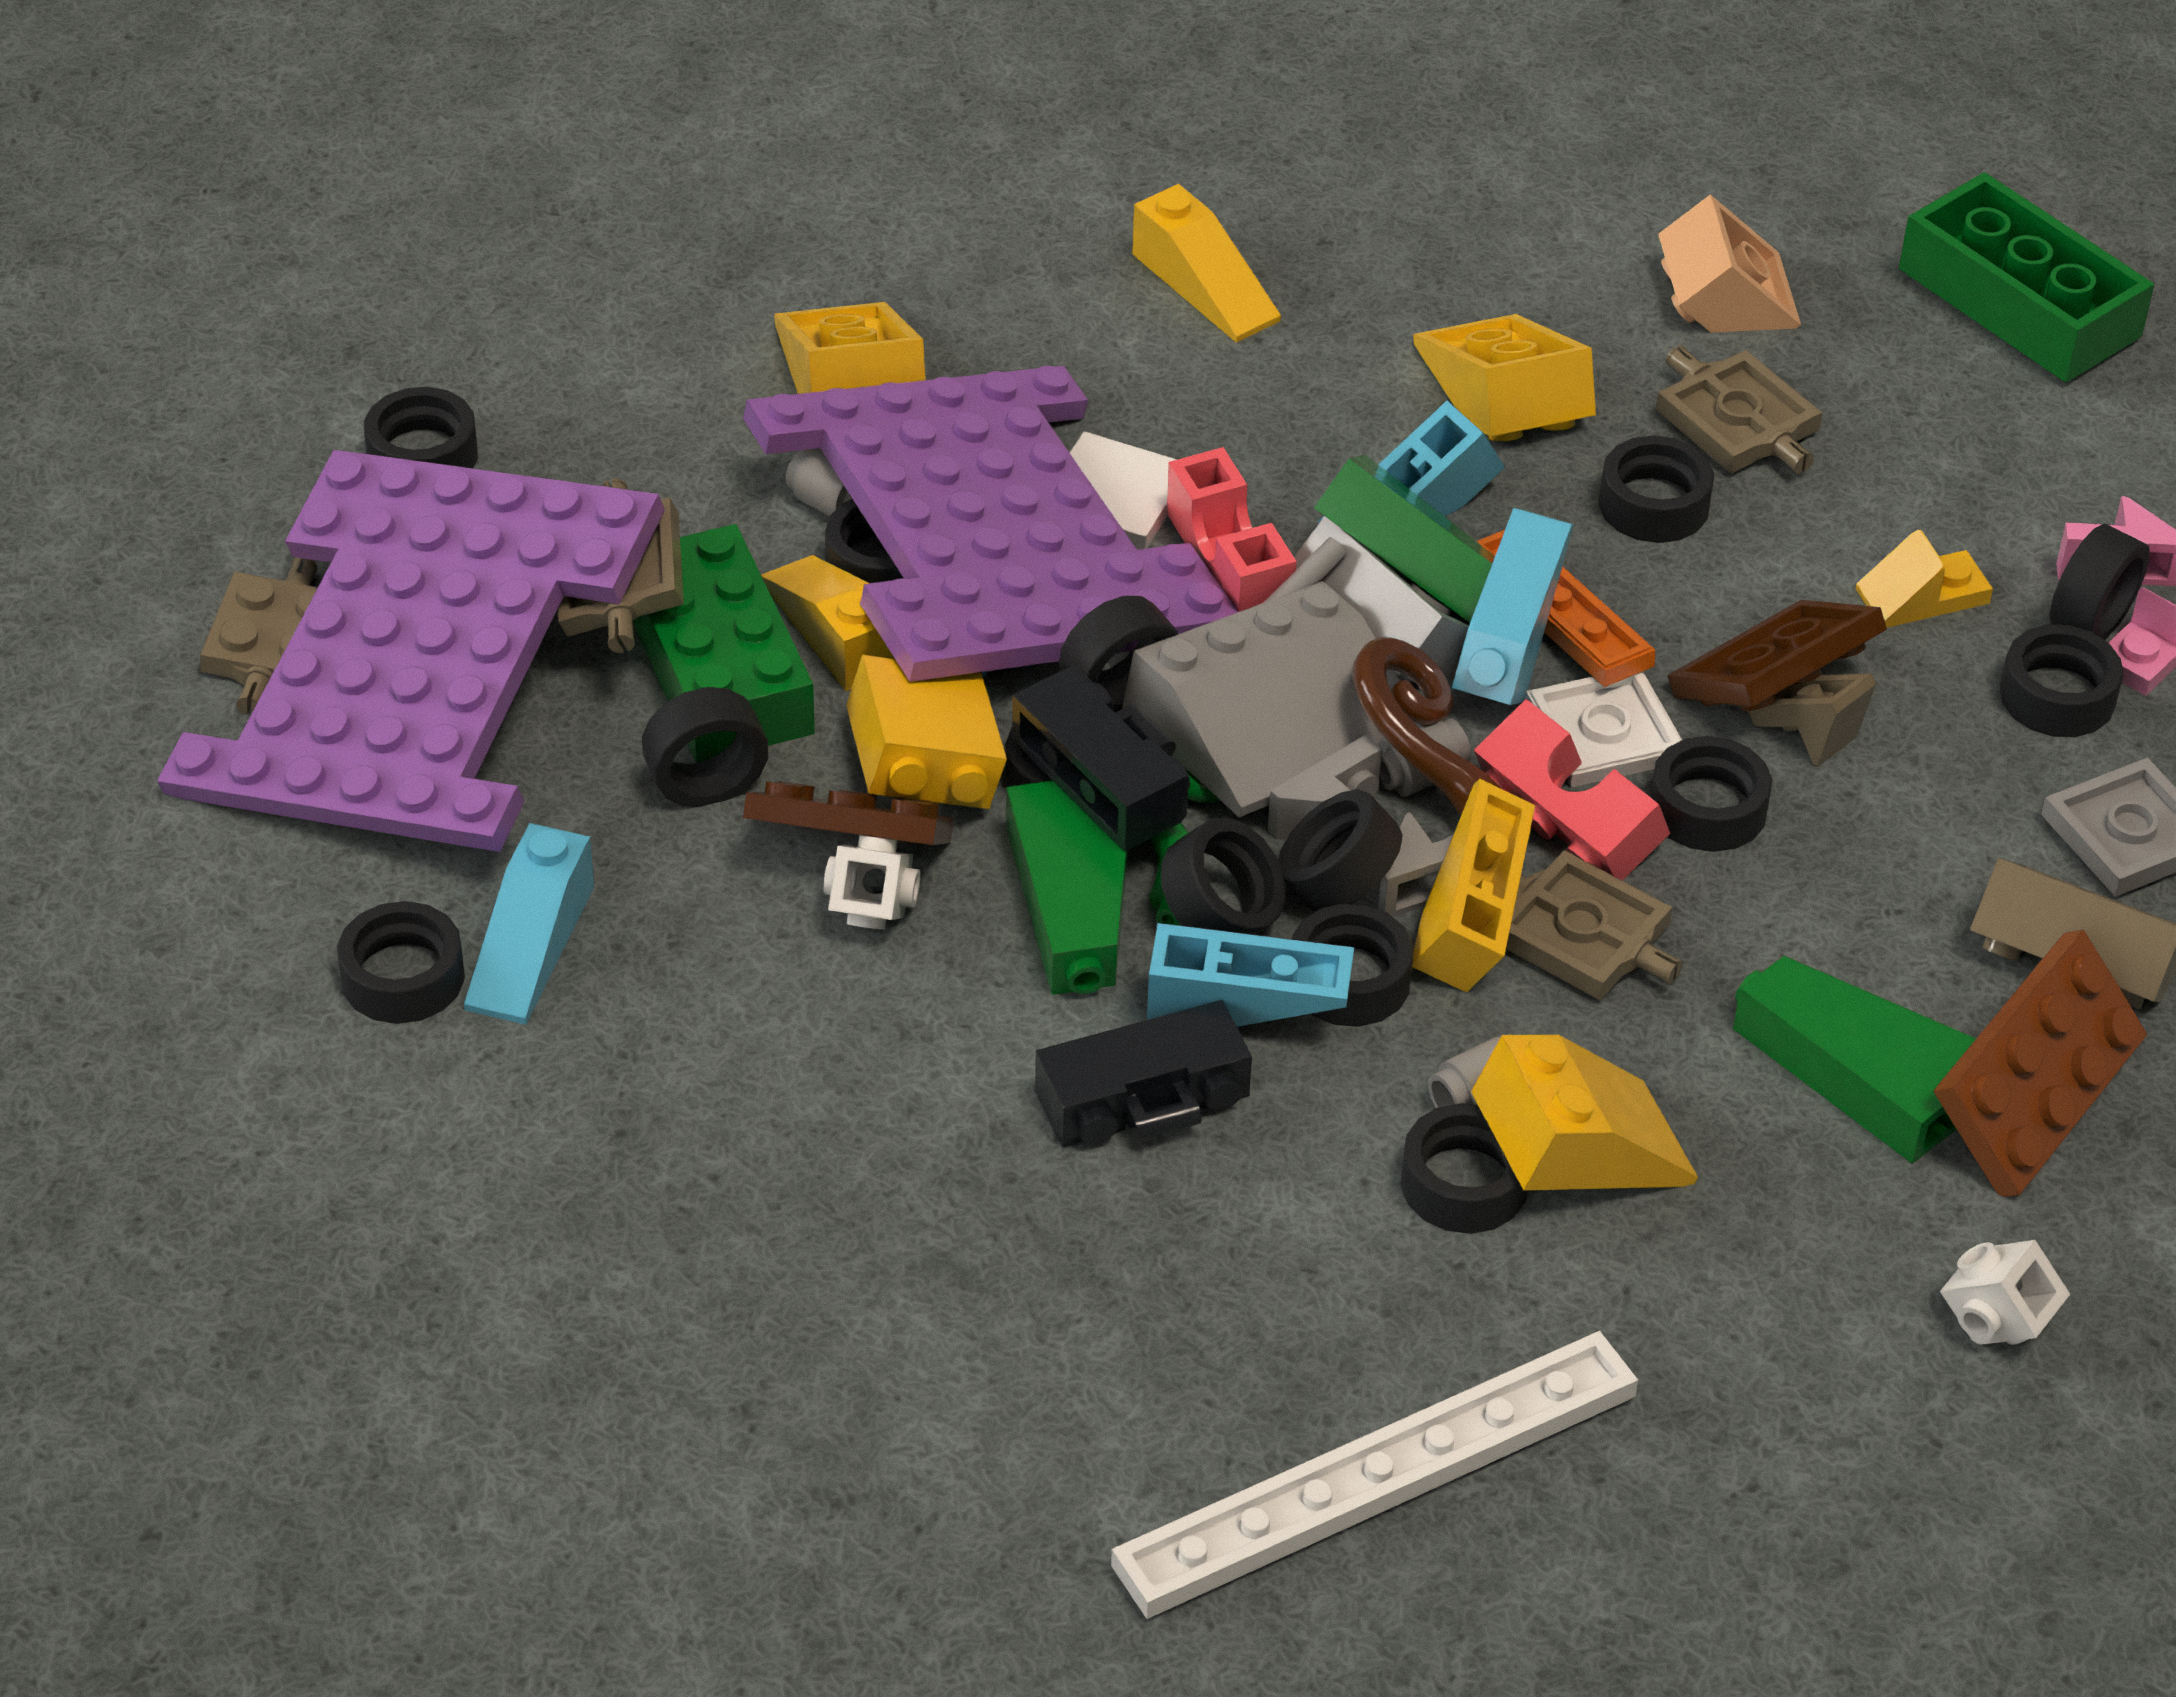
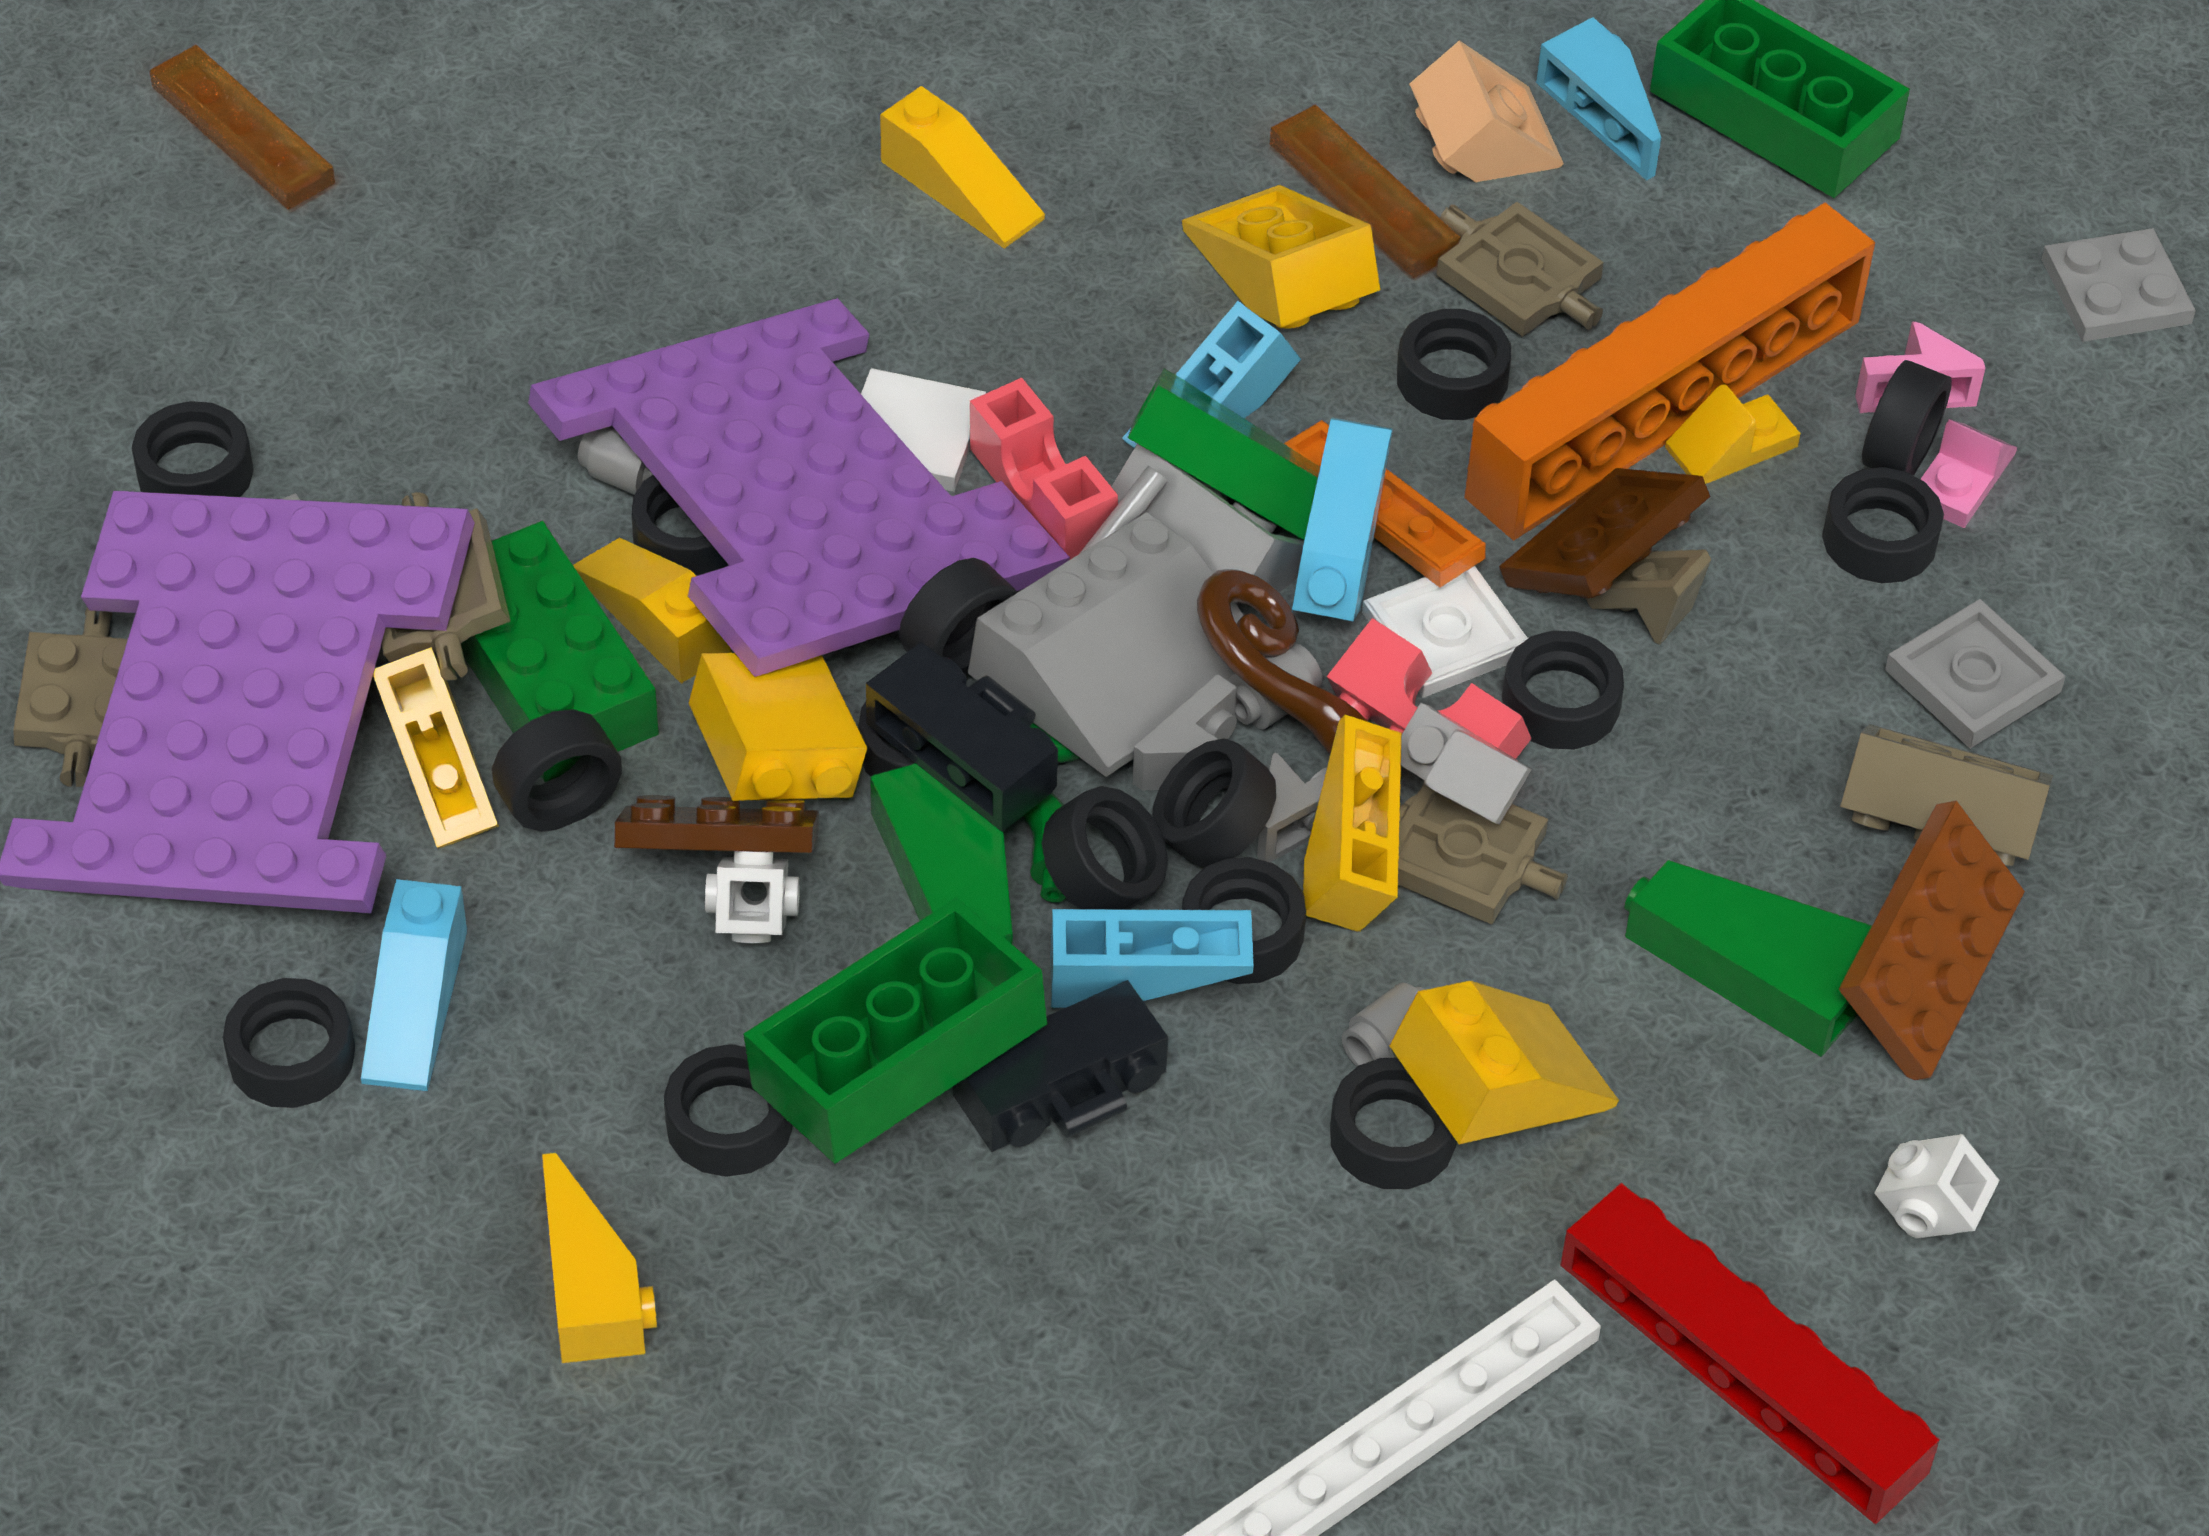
camera: 10 degrees left, 5 degrees up
(530, 159) = (242, 127): none -> clear orange plate
(594, 714) = (435, 747): none -> yellow slope
(647, 1207) = (593, 1275): none -> yellow slope
(810, 1113) = (713, 1151): none -> black tyre
(849, 347) = (616, 306): yellow slope -> none
(980, 1010) = (895, 1029): none -> green brick
(1591, 843) = (1461, 764): none -> light grey slope
(1594, 318) = (1363, 189): none -> clear orange plate
(1787, 1426) = (1750, 1352): none -> red brick
(1847, 512) = (1653, 372): none -> orange brick
(1849, 258) = (1600, 86): none -> medium azure slope

